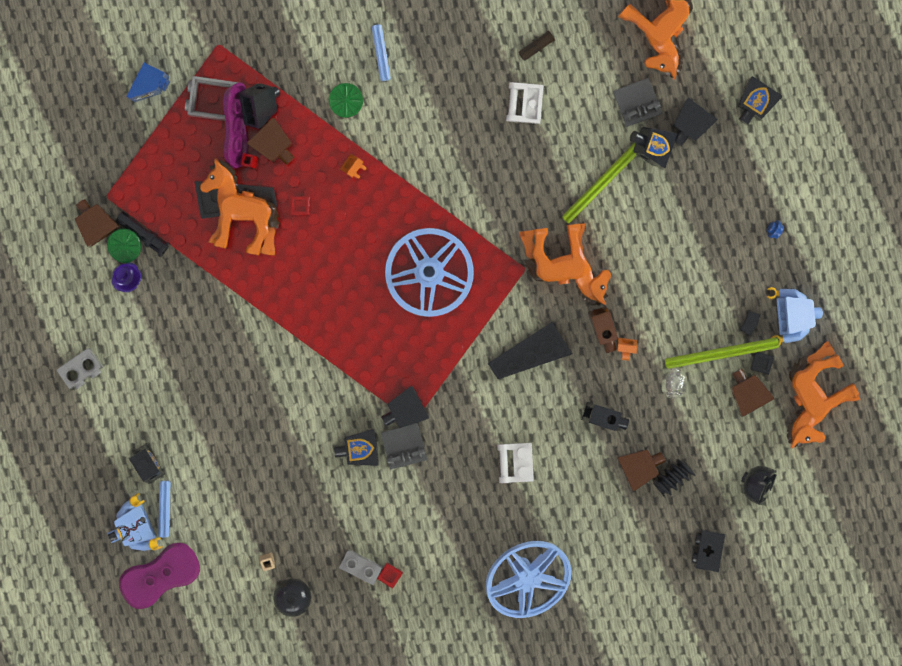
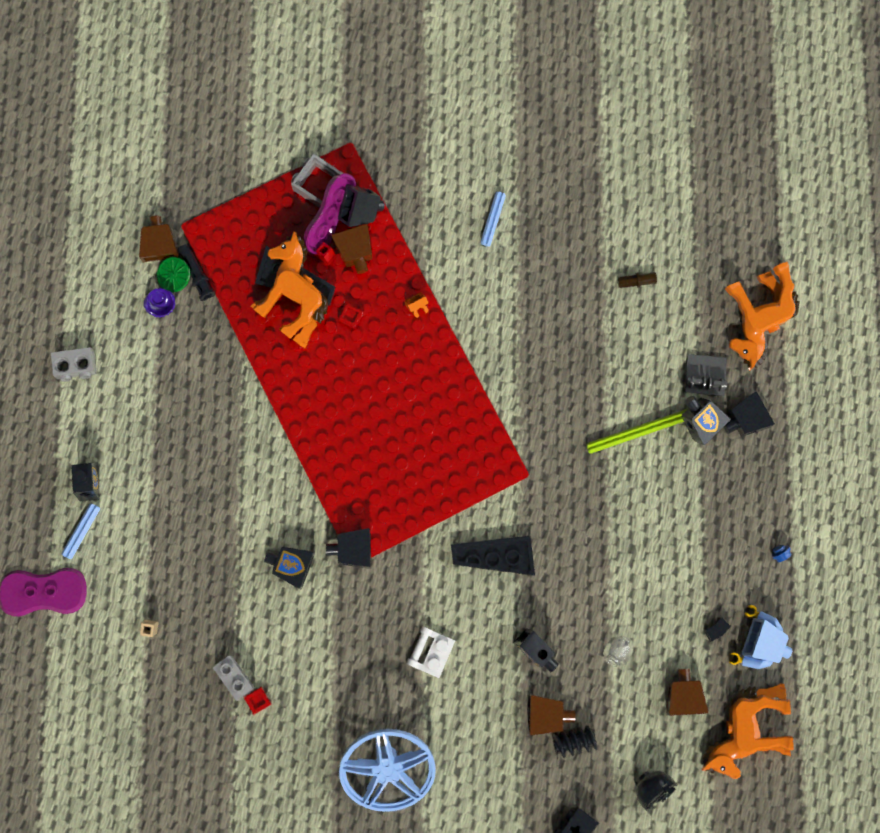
camera: 25 degrees right, 10 degrees down
(134, 527) = (43, 532): light blue torso -> none
(148, 83) = (270, 142): blue slope -> none
(292, 597) = (154, 675): black cylinder -> none
(345, 100) = (440, 245): green wheel -> none
(403, 446) = (333, 583): dark grey hinge -> none
(429, 272) = (438, 433): light blue wheel -> none
(531, 103) = (608, 327): white plate -> none
(566, 267) = (568, 491): orange animal -> none
(601, 321) = (576, 556): reddish brown torso -> none
(626, 346) = (589, 594): orange tile -> none
(721, 353) = (677, 644): lime axle -> none
(757, 100) = (819, 426): torso -> none
(762, 363) = (711, 673): black tile -> none

